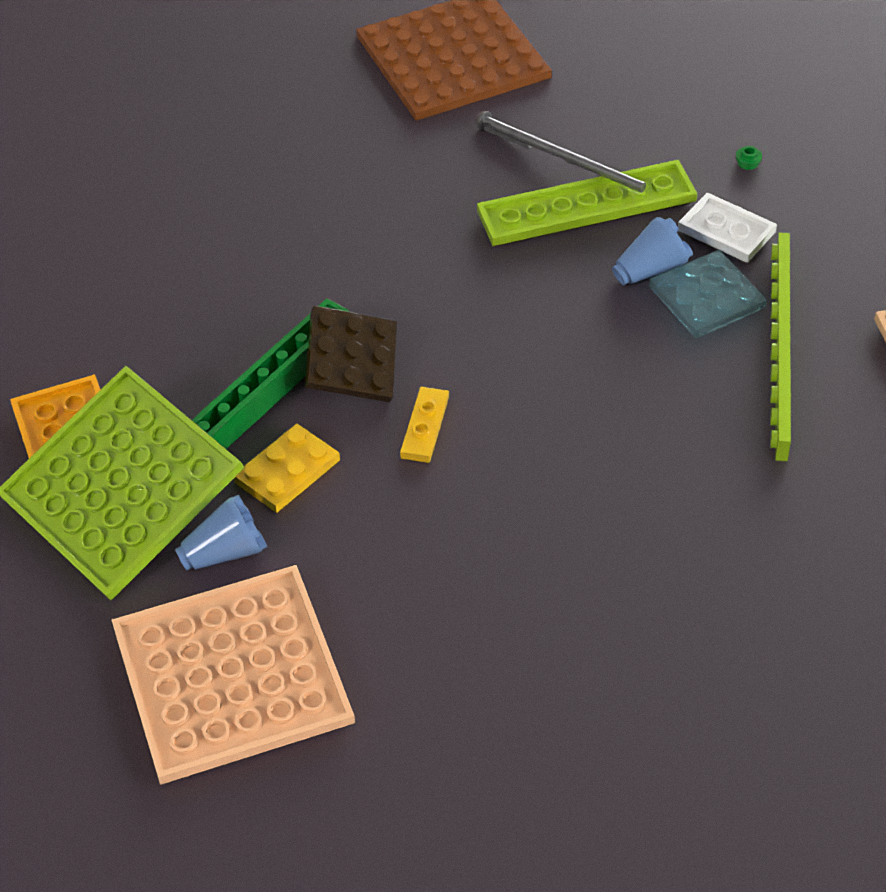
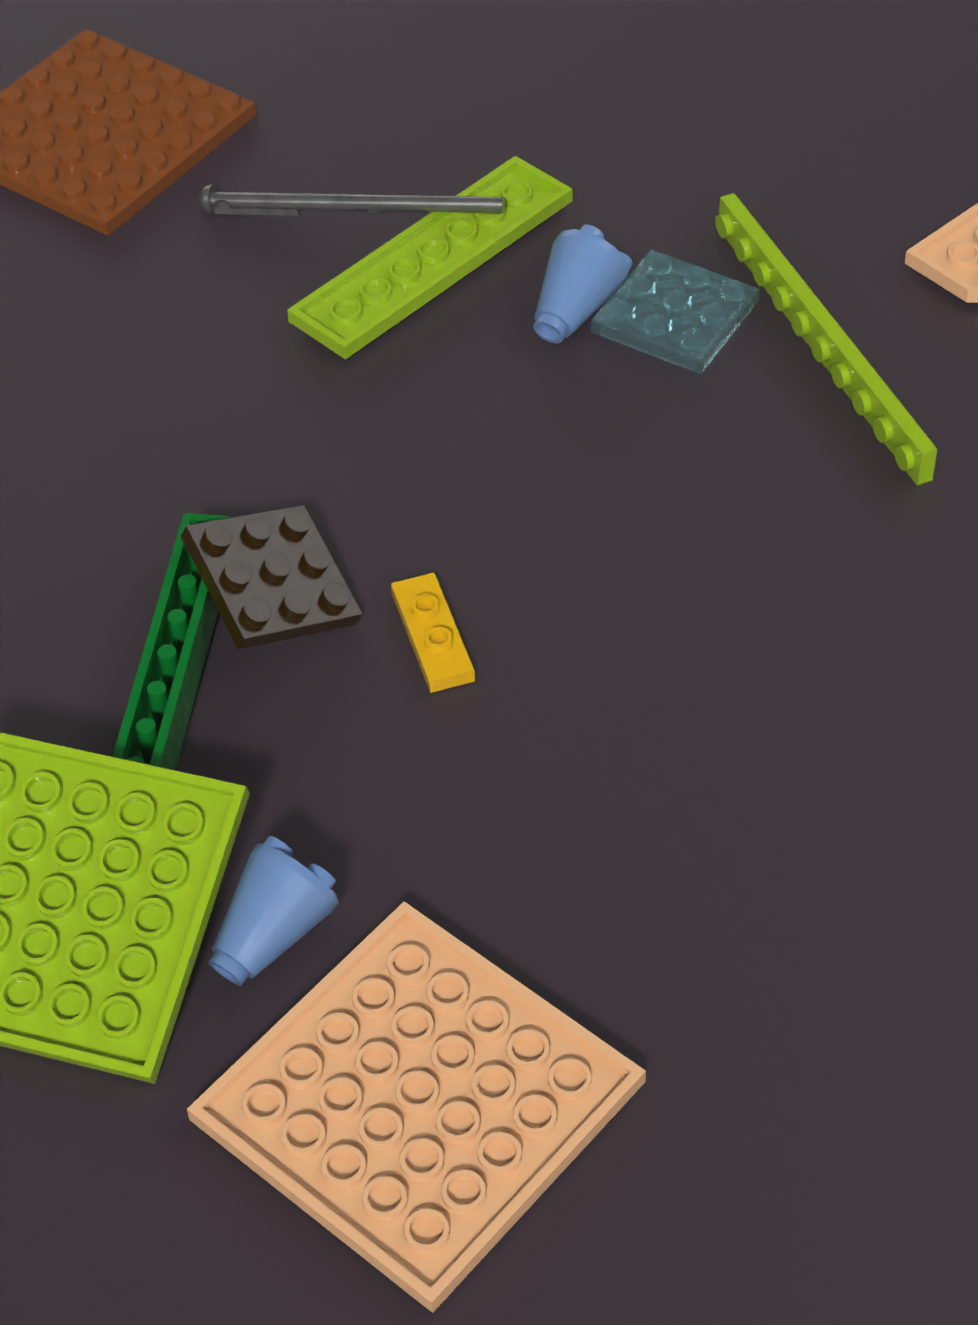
camera: 30 degrees left, 0 degrees up
(287, 467) = (287, 770): yellow plate -> none
(727, 227) = (643, 216): white plate -> none
(748, 157) = (598, 123): green plate -> none

